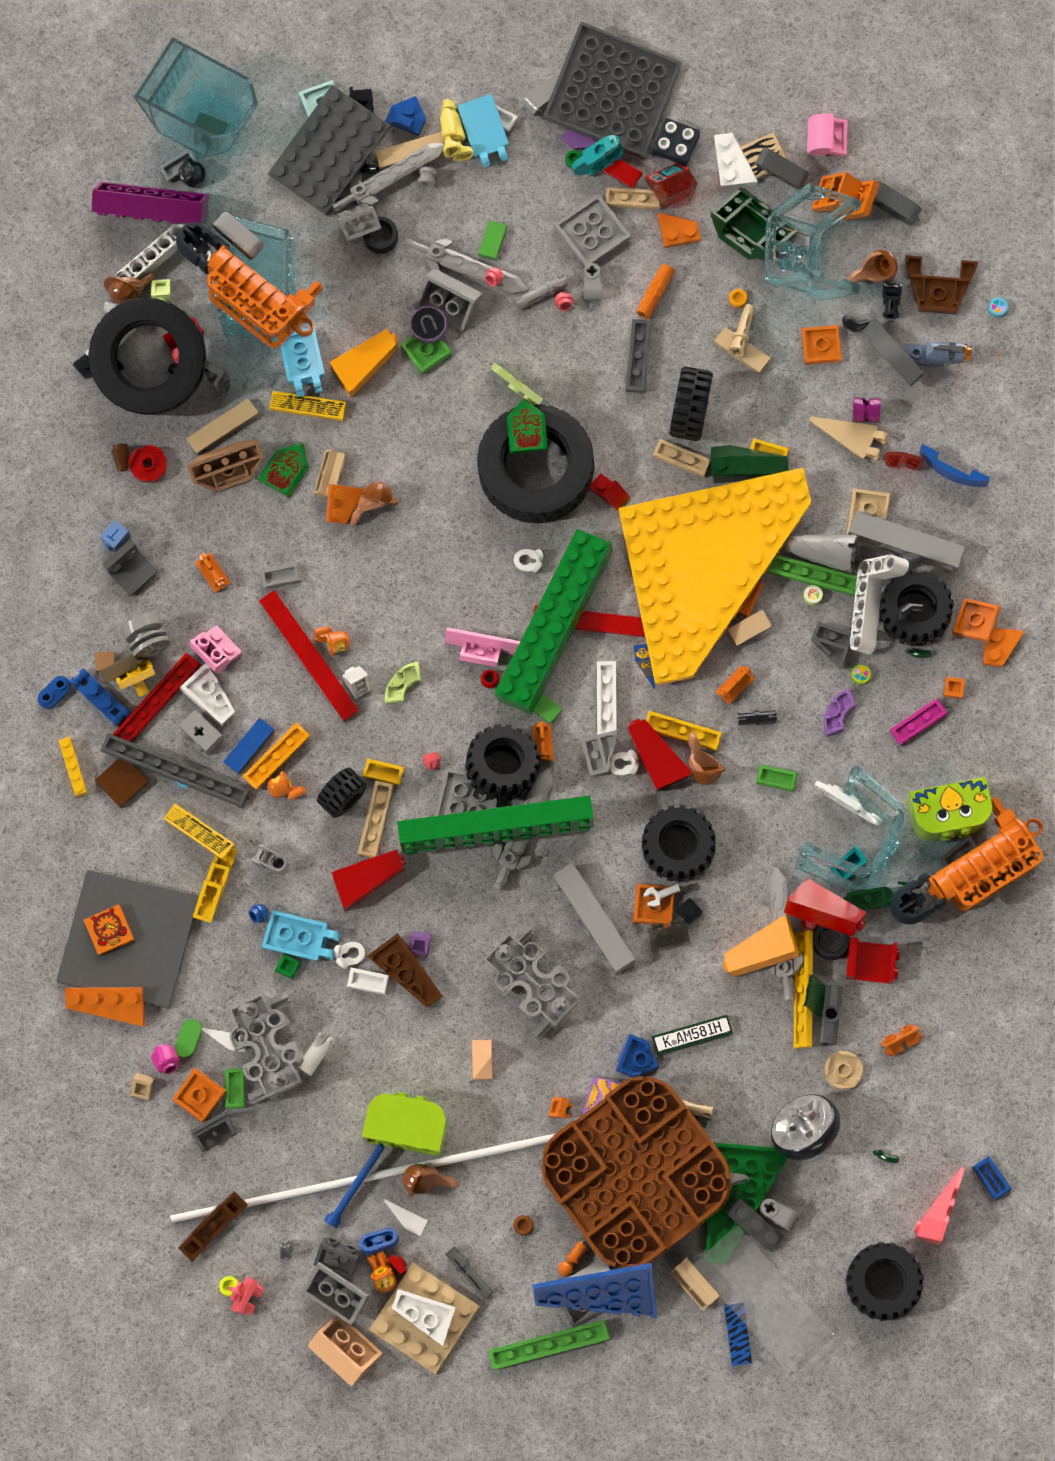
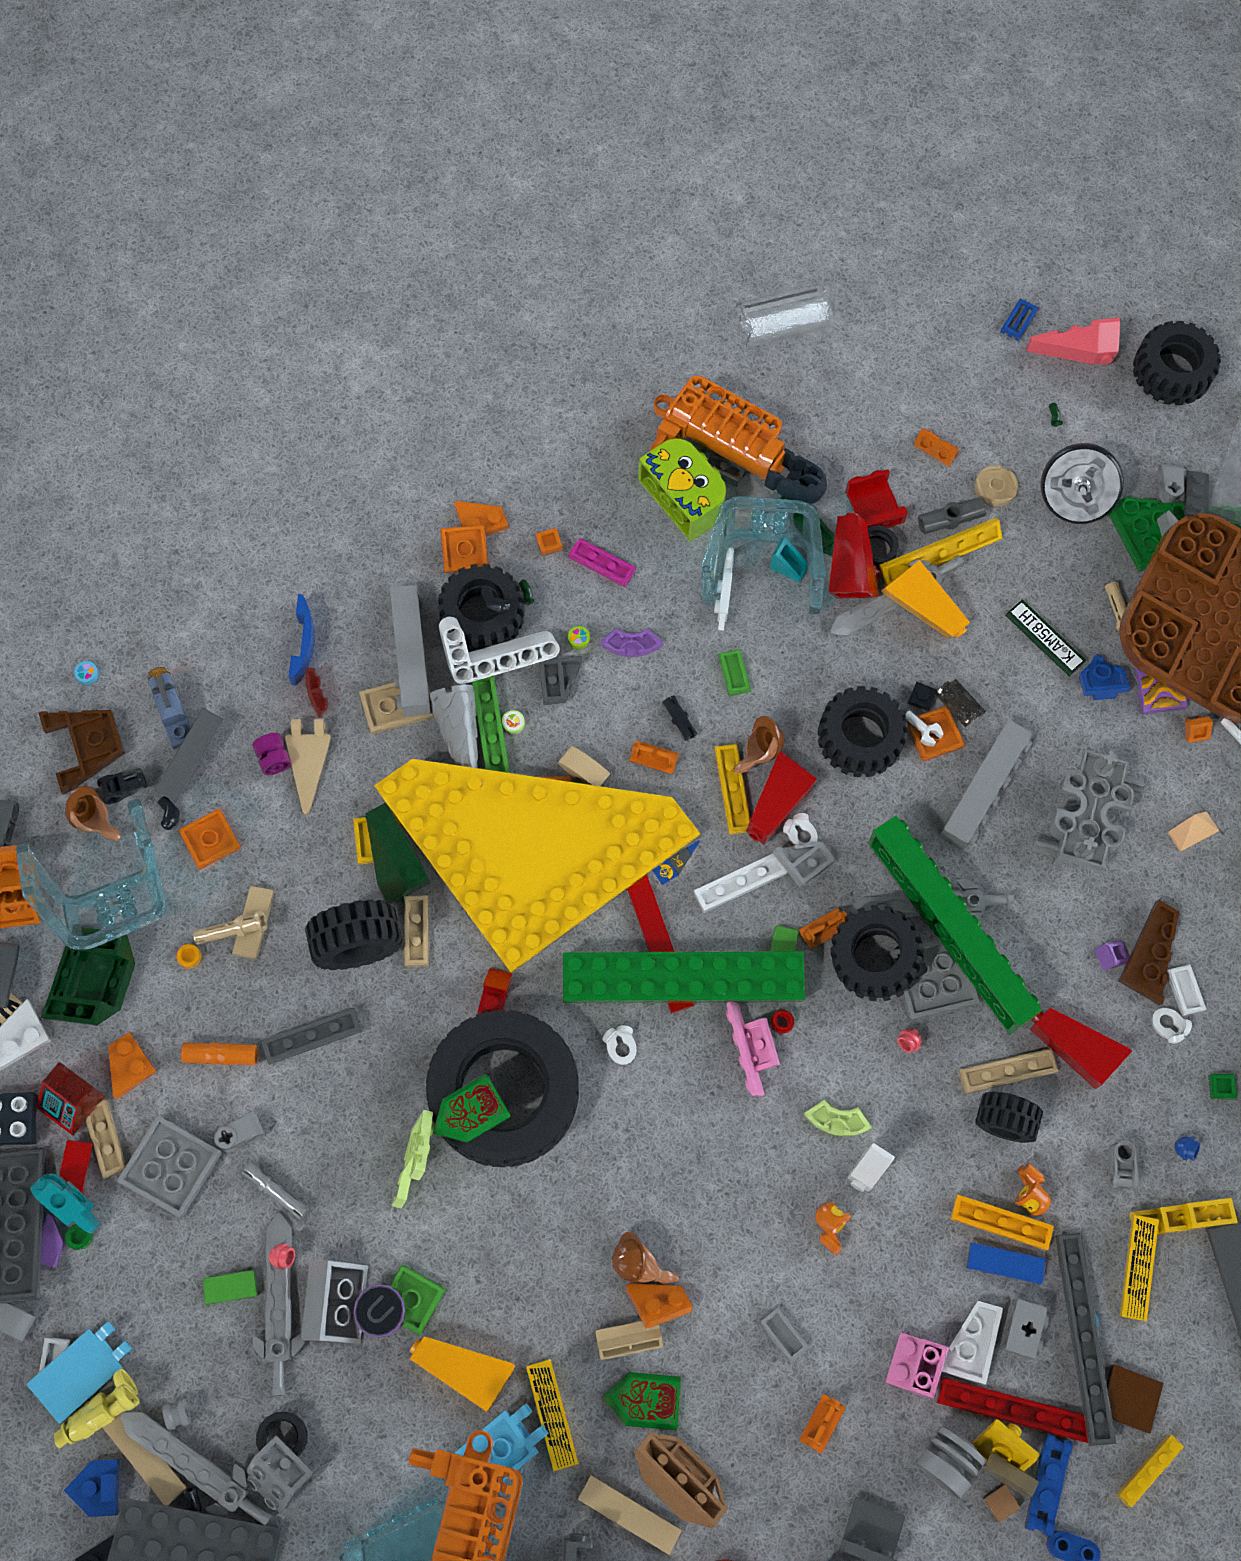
camera: 125 degrees left, 5 degrees down
(298, 936) = (1185, 1089): medium azure tile -> none
(309, 656) = (861, 1249): red tile -> none
(383, 771) = (951, 1089): yellow tile -> none
(563, 301) = (277, 1157): coral plate -> none
(815, 996) = (944, 533): clear green piece -> none

